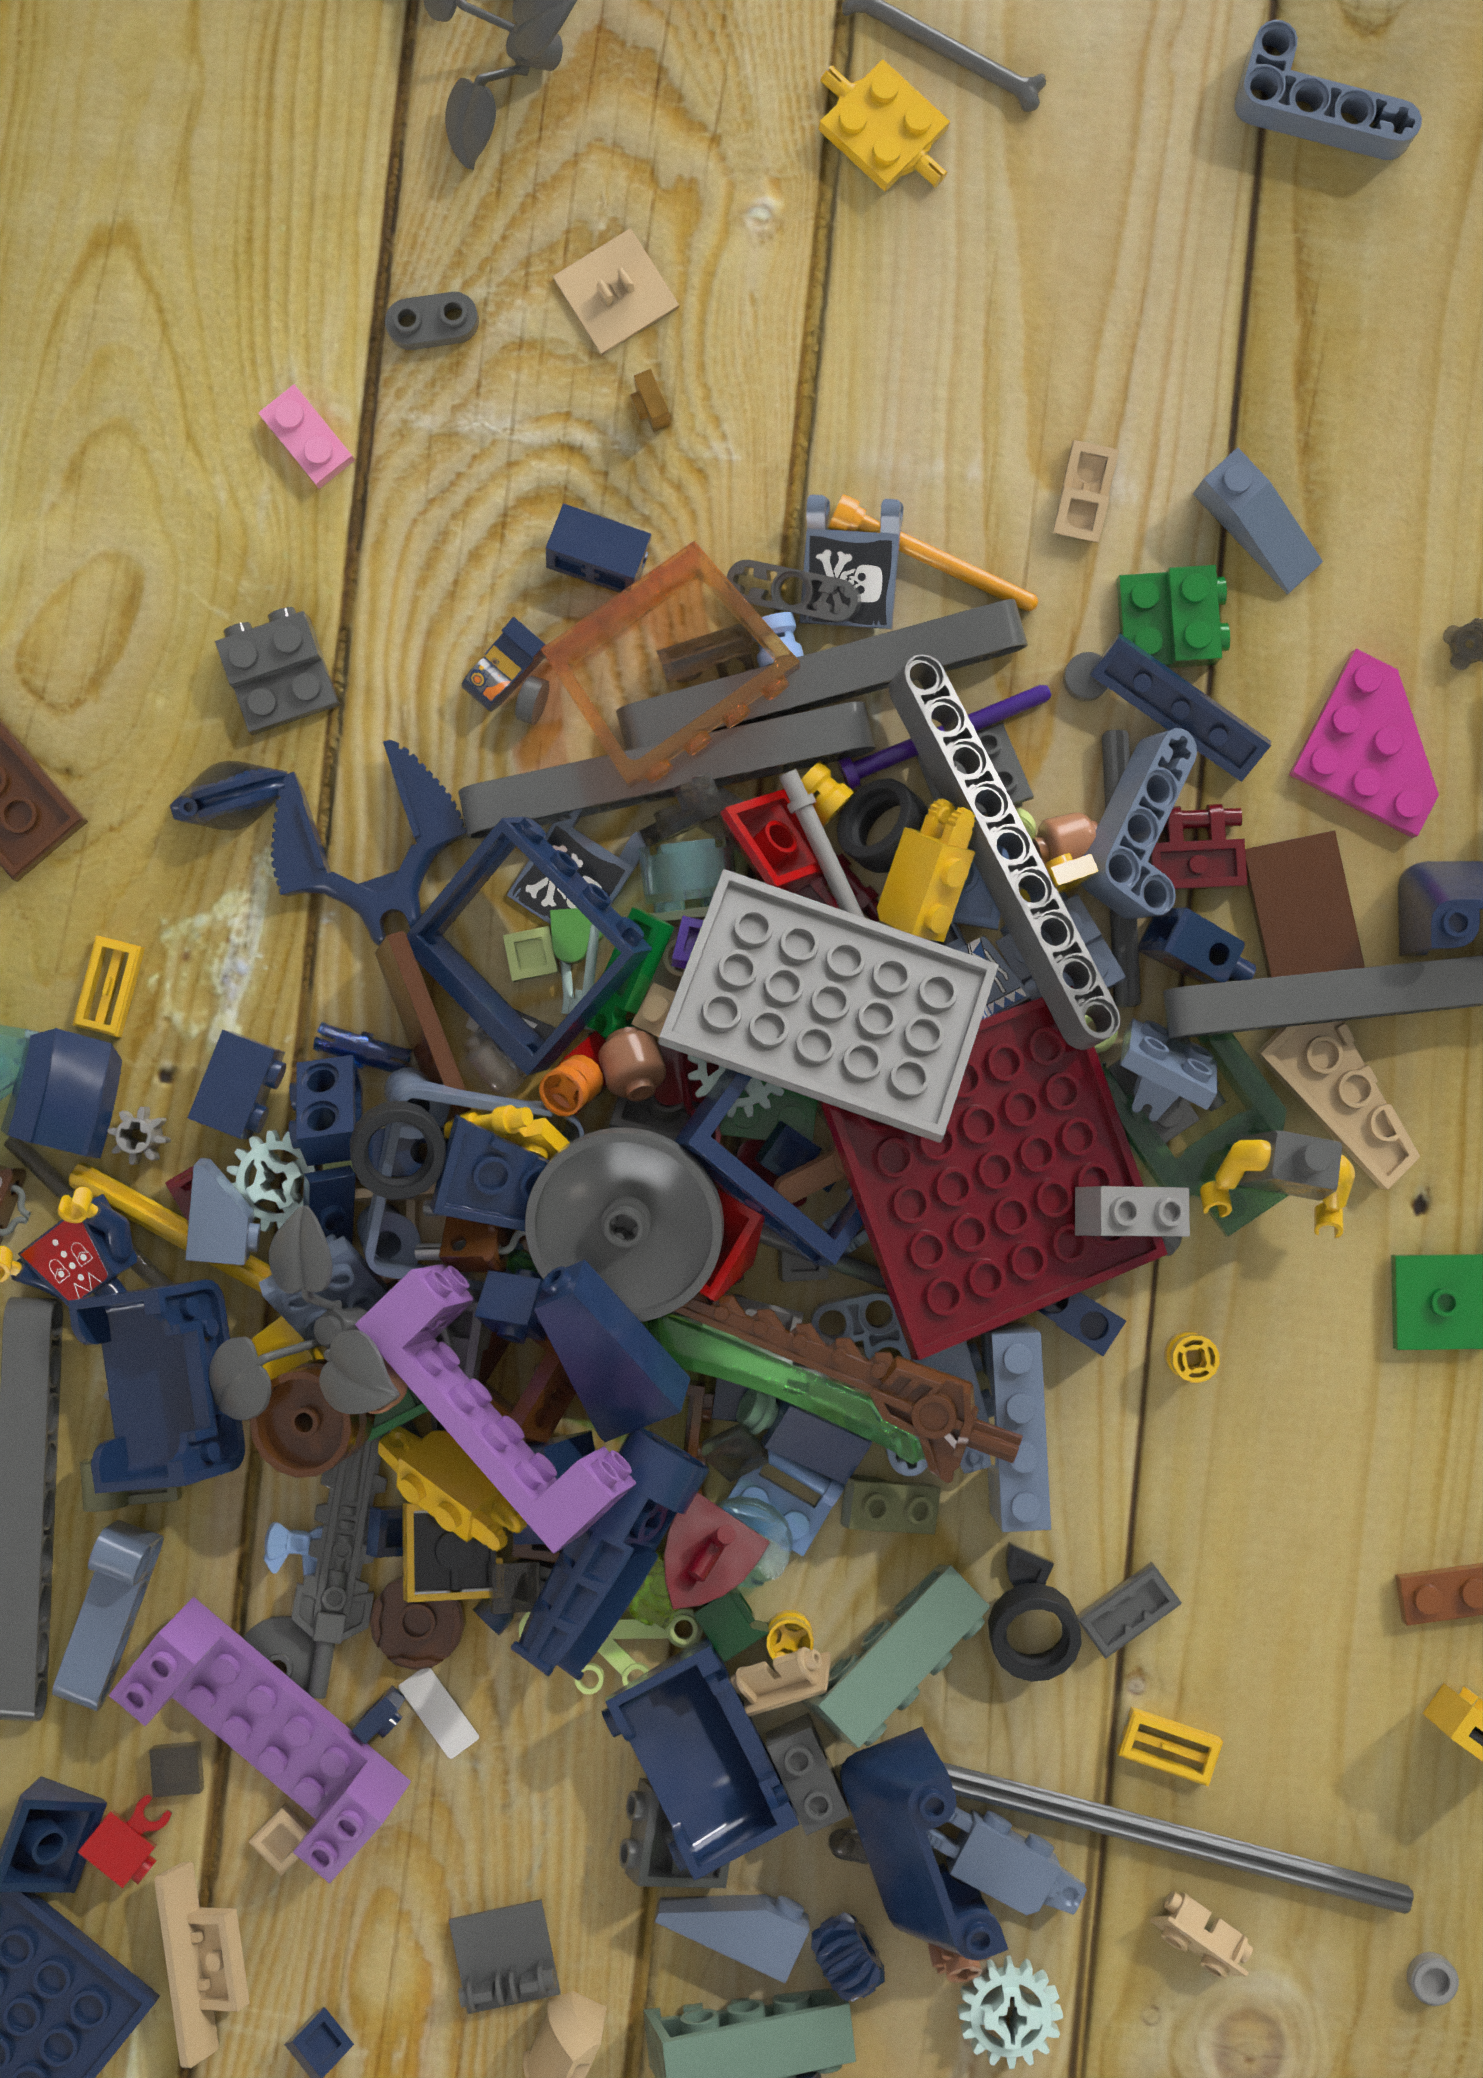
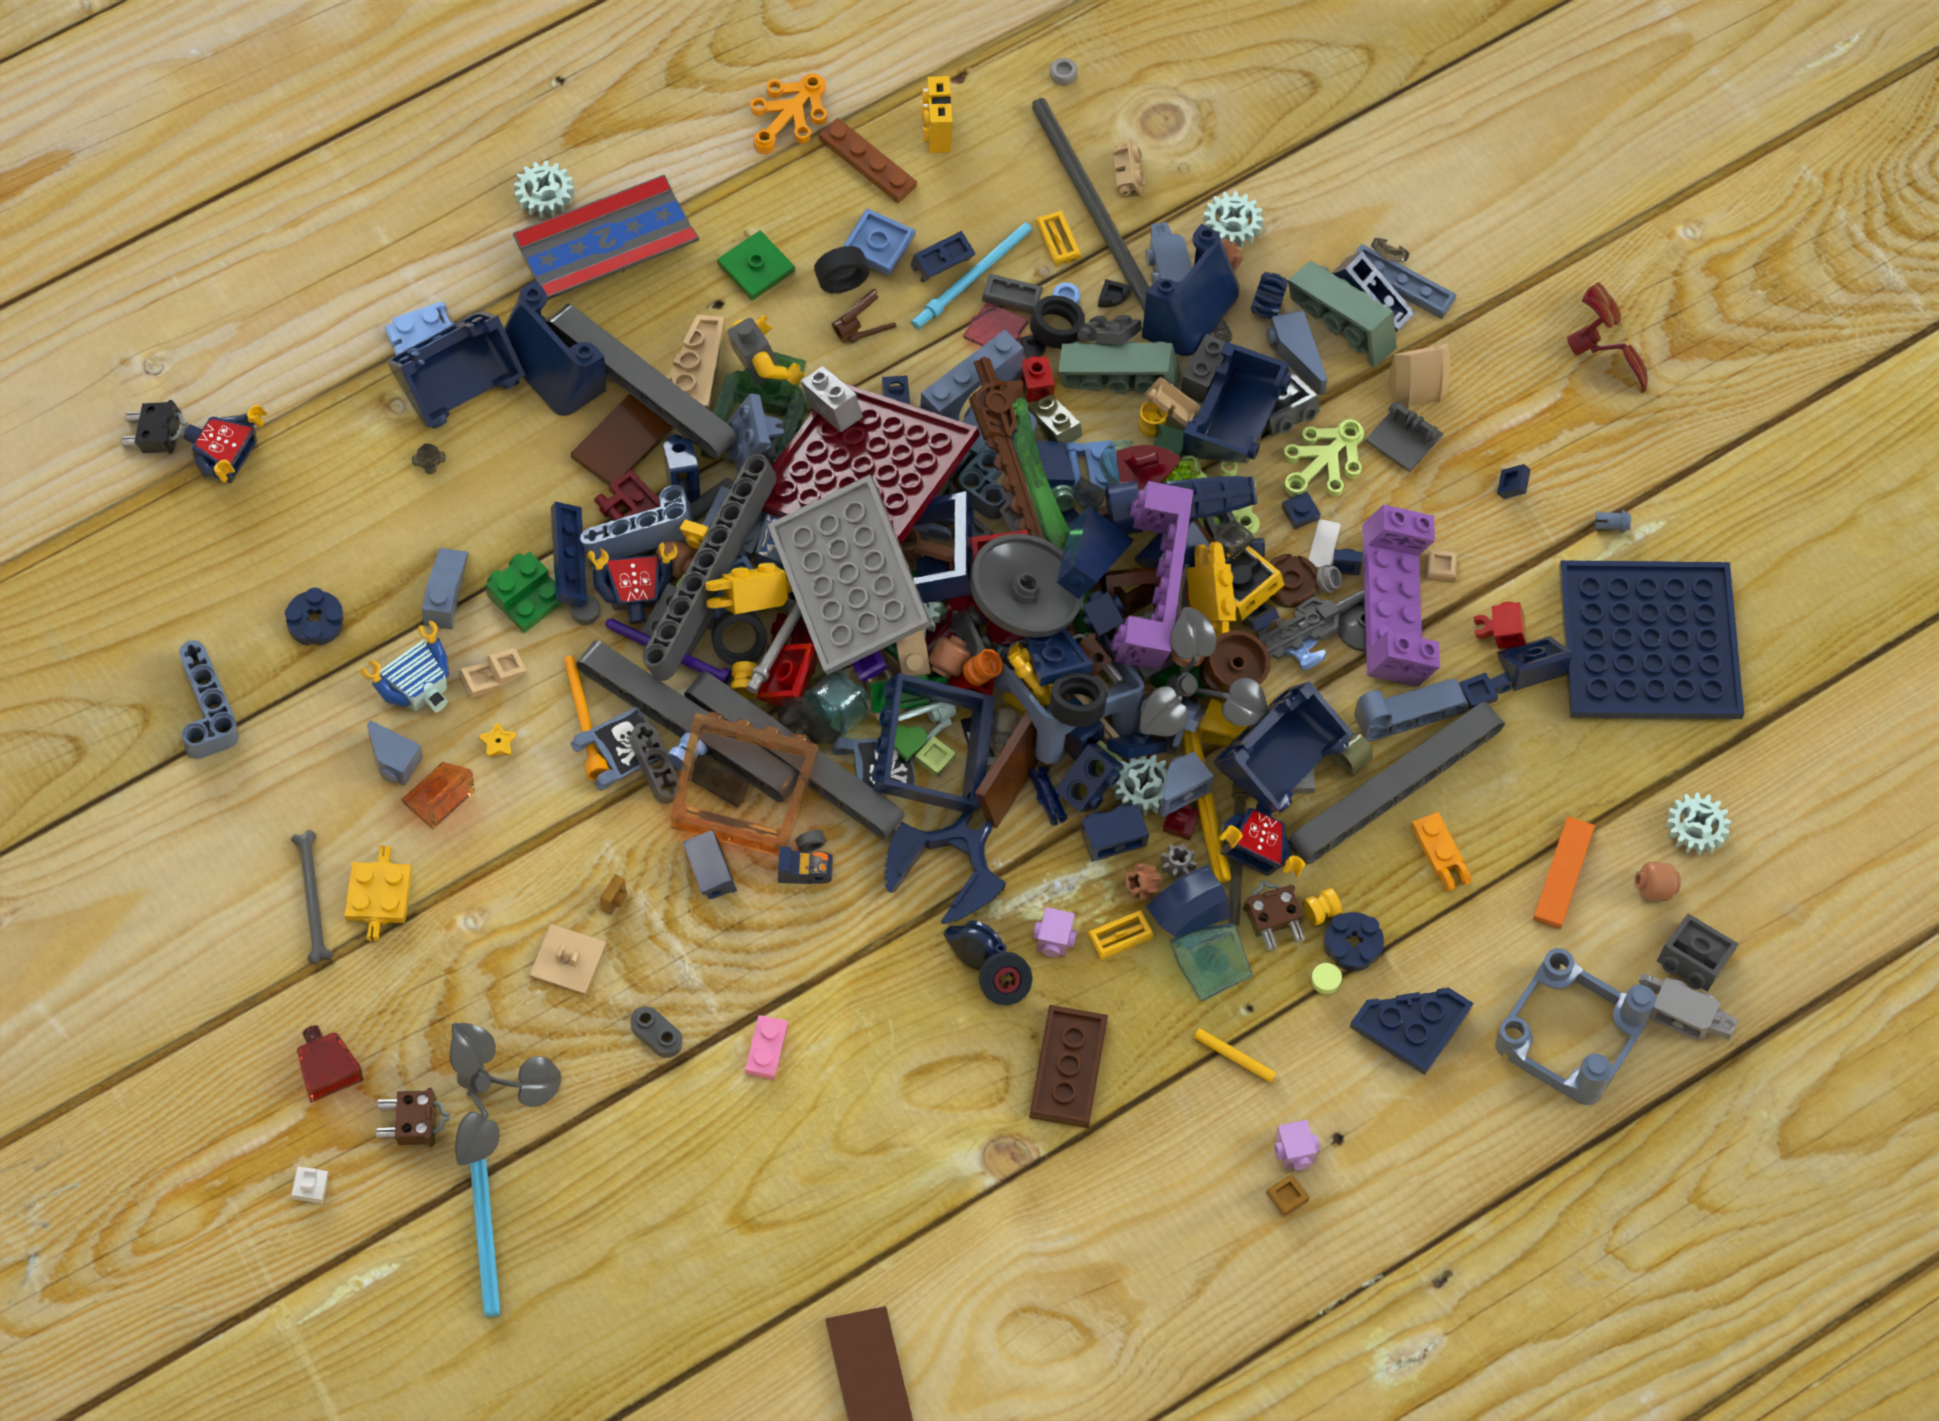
camera: 140 degrees left, 25 degrees down
(62, 1732) = (1484, 689): none -> dark blue plate
(145, 1067) = (1143, 881): none -> nougat gear
(151, 786) = (998, 965): none -> black bush
(167, 901) = (1055, 932): none -> lavender brick
(176, 1769) = (1453, 632): clear smoke tile -> none
(201, 1962) = (1522, 553): tan bracket -> none
(277, 670) = (897, 971): dark grey plate -> none
(375, 1670) = (1329, 578): none -> light grey plate
(506, 1722) = (1301, 510): none -> dark blue plate
(557, 1826) = (1325, 456): none -> yellowish green plant
(954, 1700) = (1110, 332): none -> dark grey plate
(964, 294) = (440, 793): none -> clear orange slope
(970, 1533) = (1037, 378): none -> red brick
(977, 437) = (495, 748): none -> yellow plate
(1026, 1749) = (1113, 293): none -> black tile
(1064, 275) = (394, 754): none -> sand blue slope
(1072, 752) = (632, 581): none -> torso
(1074, 1685) = (1068, 290): none -> light blue tile
(1093, 1543) = (993, 321): none -> clear pink piece
(1152, 380) = (415, 676): none -> torso
(1183, 1353) = (873, 344): yellow wheel -> none
(1189, 1488) = (936, 306): none -> medium azure bar
(1251, 1347) = (848, 324): none -> reddish brown plant
(1254, 1560) = (942, 256): none -> dark blue hinge
(1337, 1402) = (841, 269): none -> black tyre
(1350, 1494) = (880, 240): none -> medium blue plate
(1360, 309) = (314, 632): none -> dark blue plate
(1370, 748) = (516, 467): dark pink plate -> none

